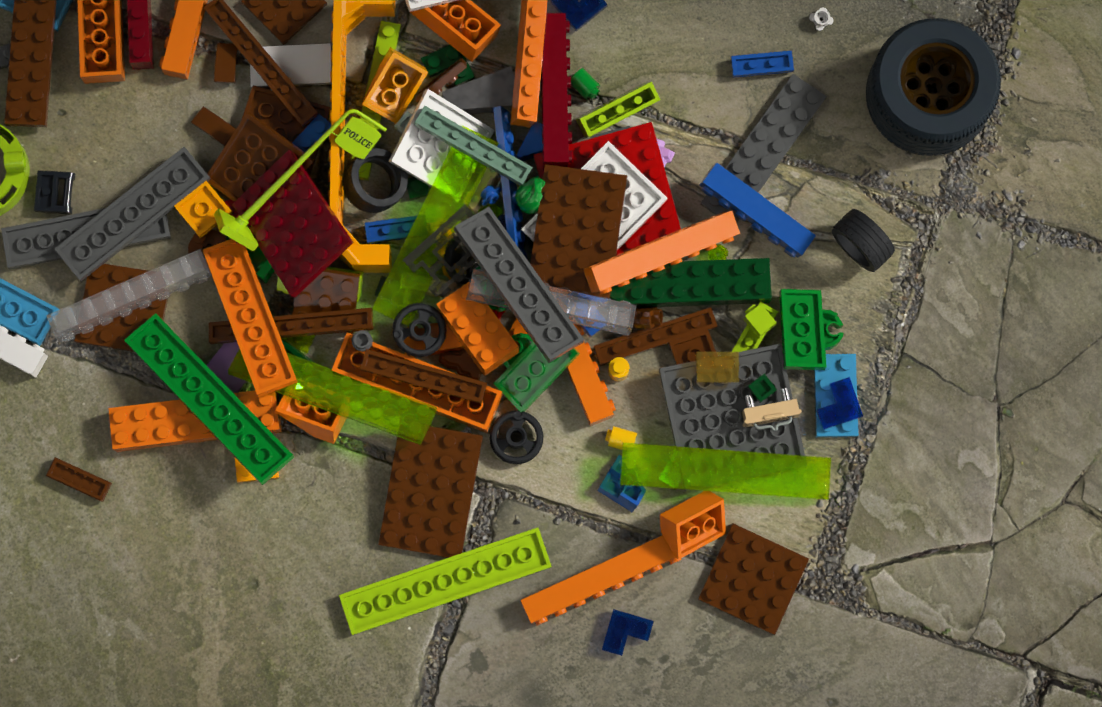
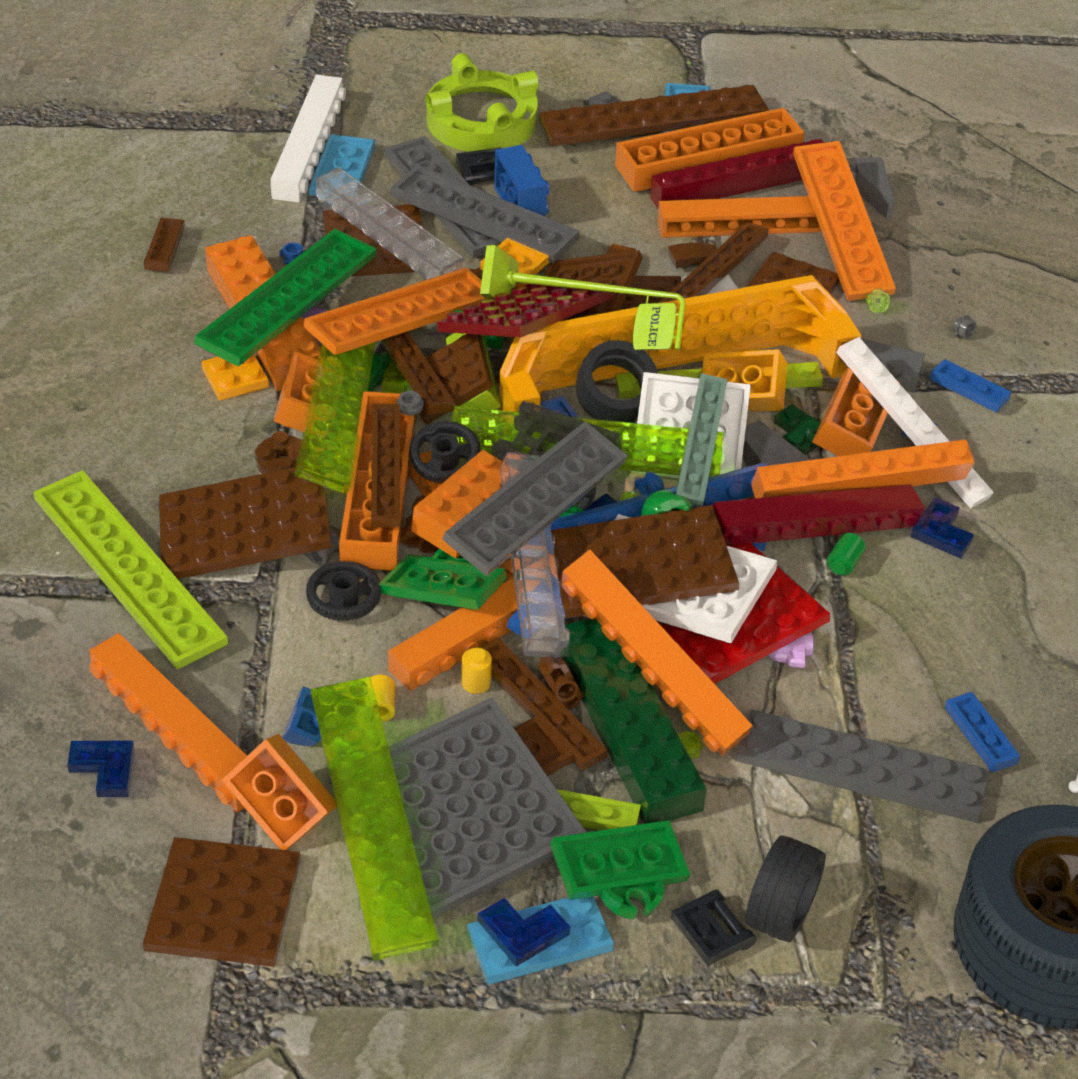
camera: 70 degrees right, 35 degrees down
(105, 172) = (520, 180): none -> blue brick
(118, 375) = (291, 251): none -> blue plate
(361, 458) = (278, 445): none -> reddish brown plate
(448, 76) = (778, 419): reddish brown plate -> none
(618, 109) = (832, 588): lime brick -> none
(717, 367) = (519, 756): clear yellow plate -> none
(757, 210) = (768, 763): blue brick -> none
(759, 320) = (609, 800): lime brick -> none
(762, 388) = (509, 819): dark green plate -> none
(770, 412) = (479, 845): tan piece -> none
(863, 296) = (705, 931): none -> black plate

